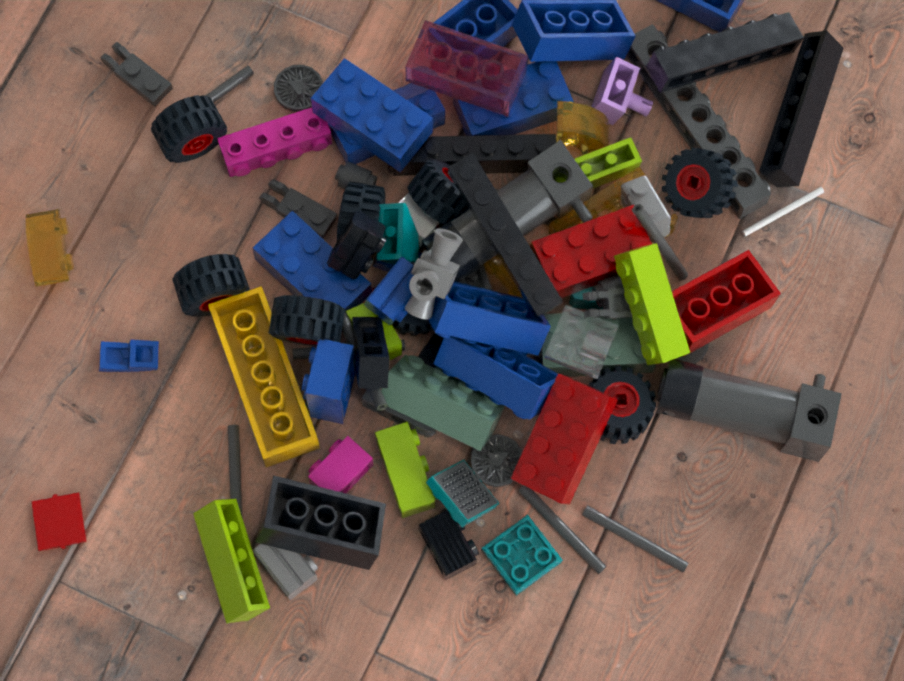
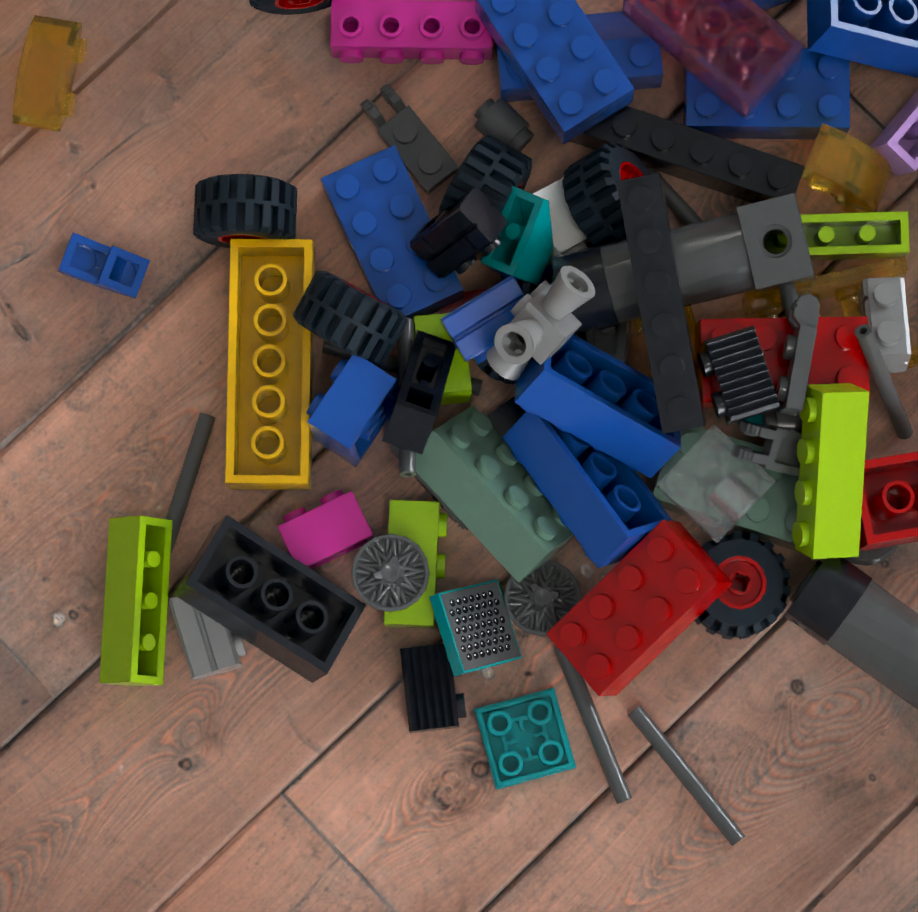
camera: 30 degrees right, 10 degrees up
(394, 477) = (390, 573): none -> dark grey wheel
(570, 264) = (738, 375): none -> black brick
(602, 236) = (799, 351): none -> dark grey hinge

